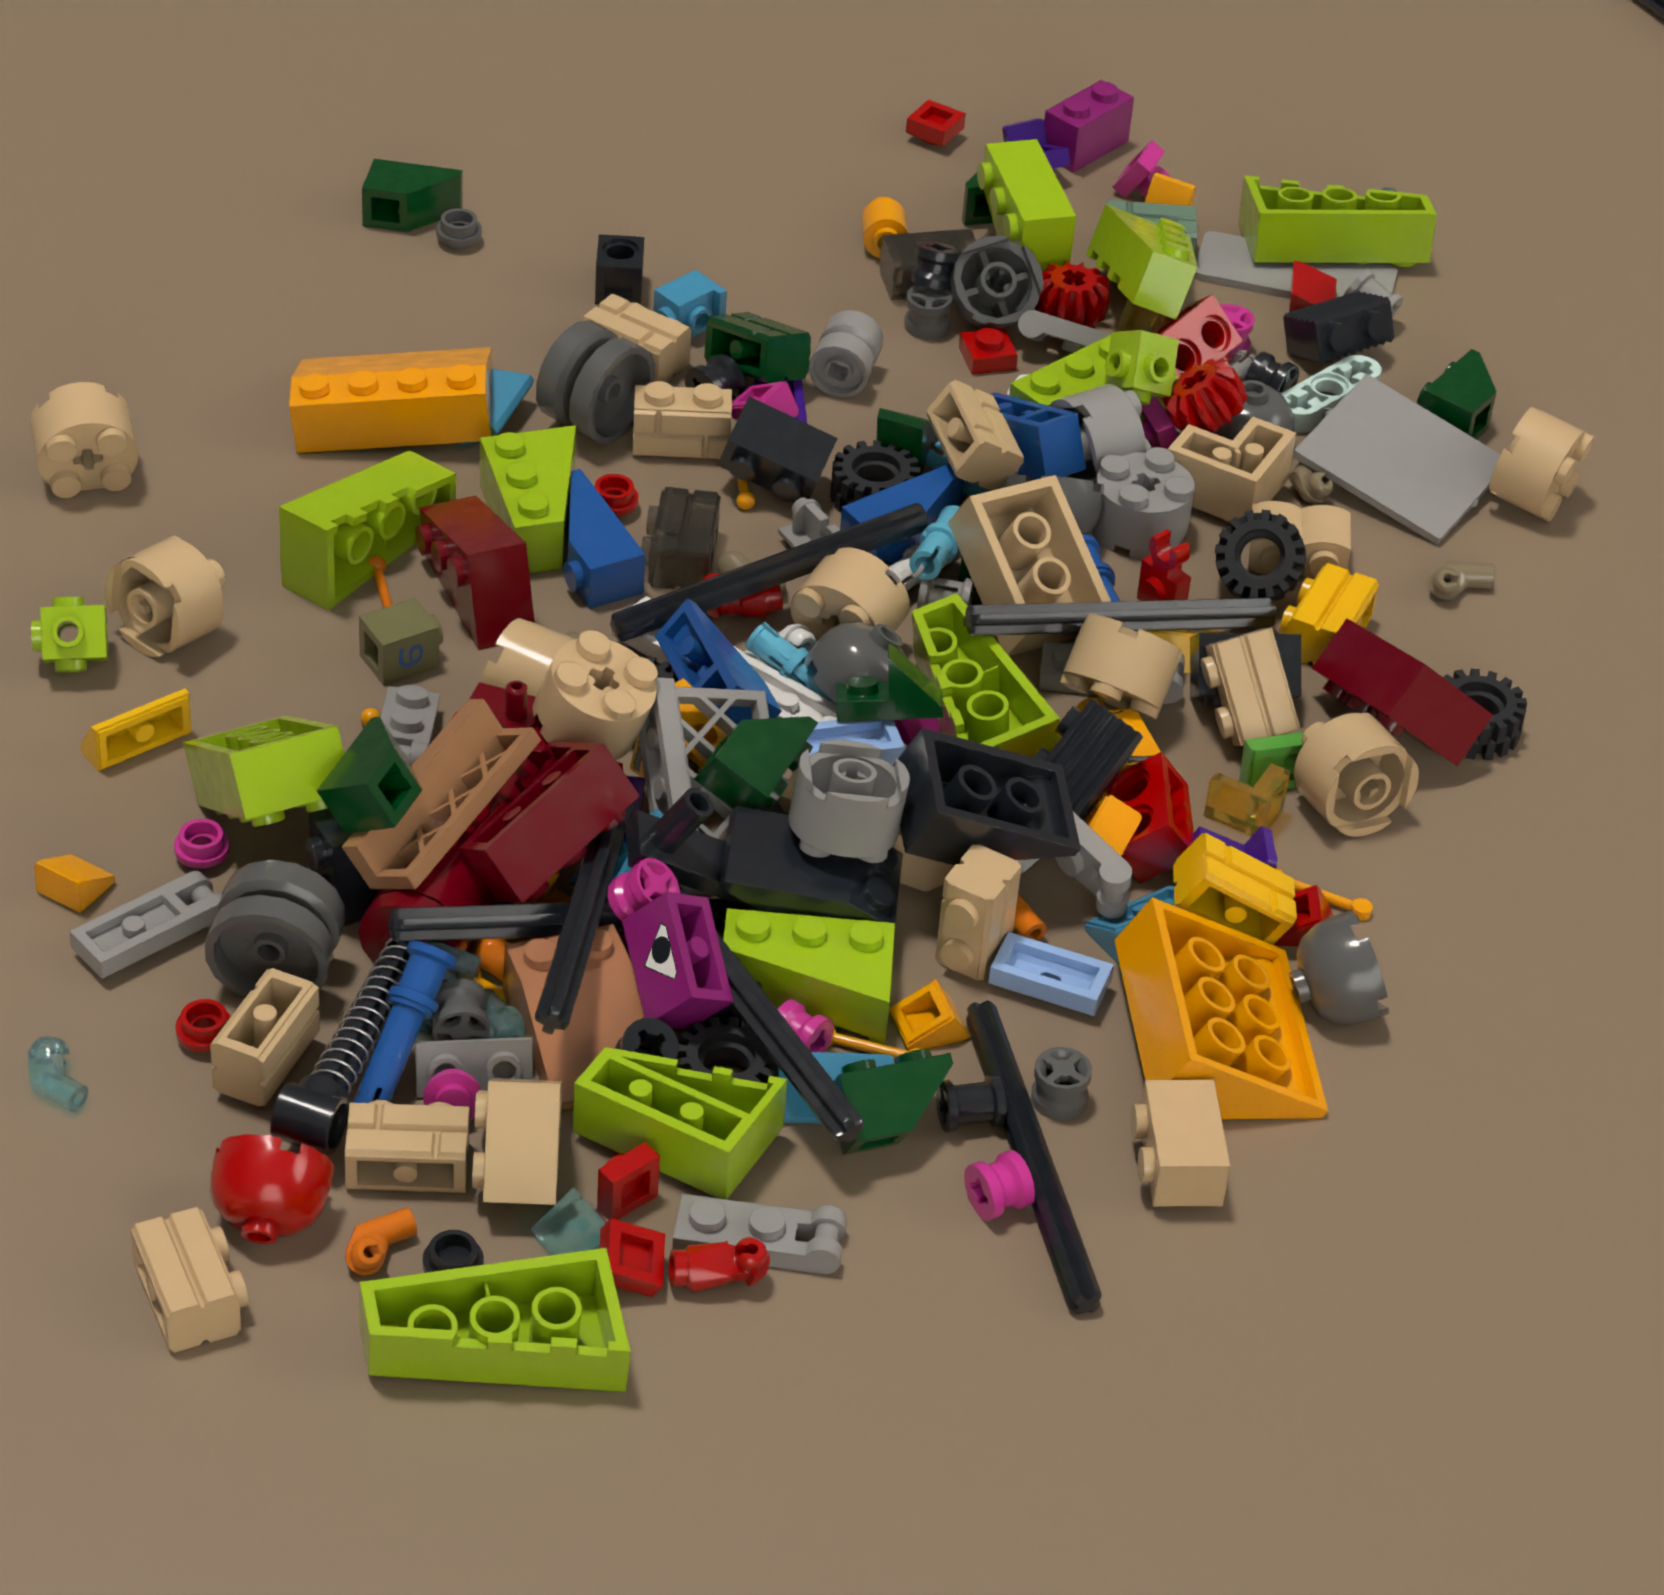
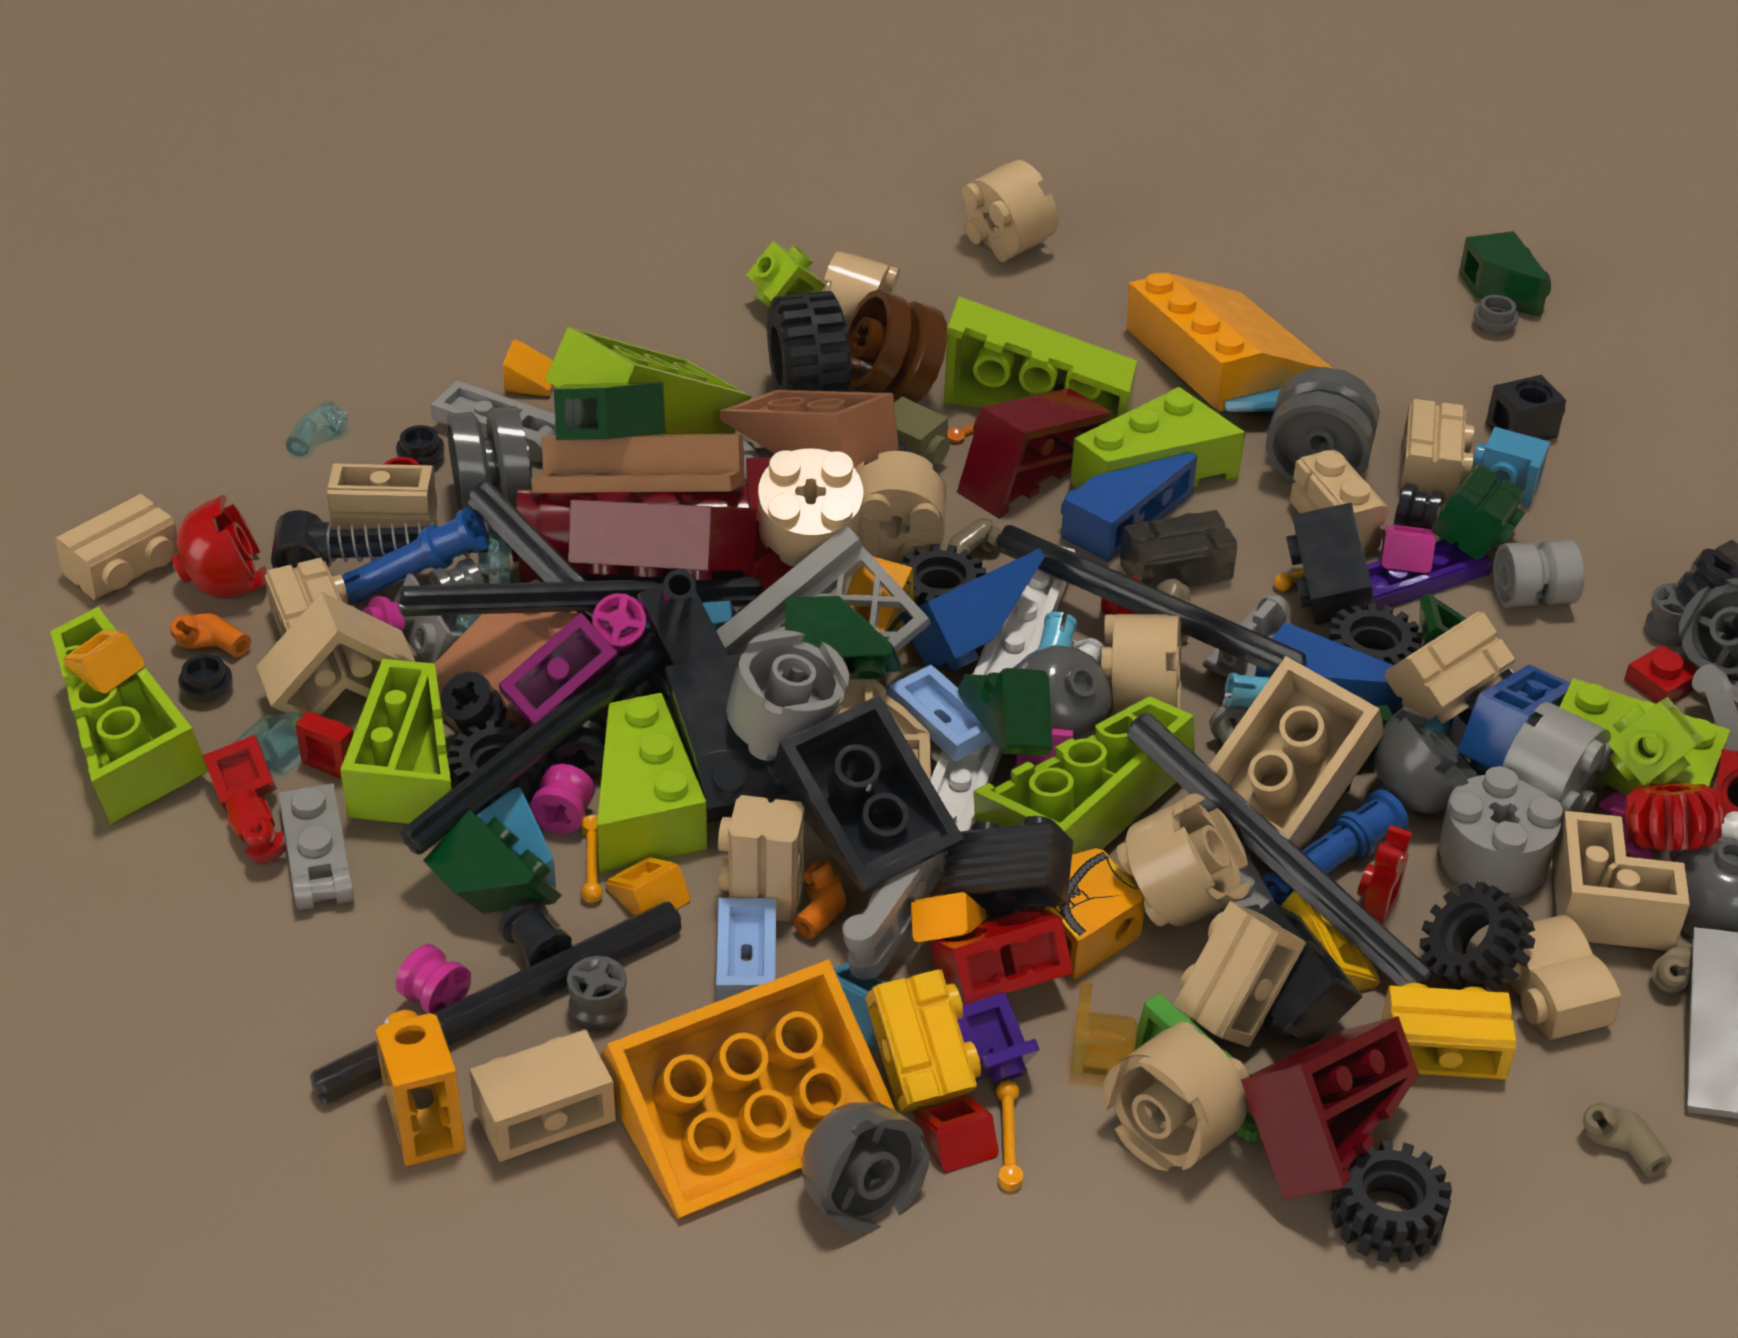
camera: 70 degrees right, 0 degrees up
(138, 730) = (712, 347): yellow slope -> none
(155, 997) = (421, 444): none -> black plate
(252, 648) = (808, 343): none -> black tyre
(317, 594) = (895, 346): none -> reddish brown wheel
(400, 672) = (824, 420): none -> nougat slope
(460, 1291) = (105, 660): none -> light orange slope
(618, 493) = (1209, 496): red plate -> none
(1142, 1211) = (412, 1057): none -> light orange torso

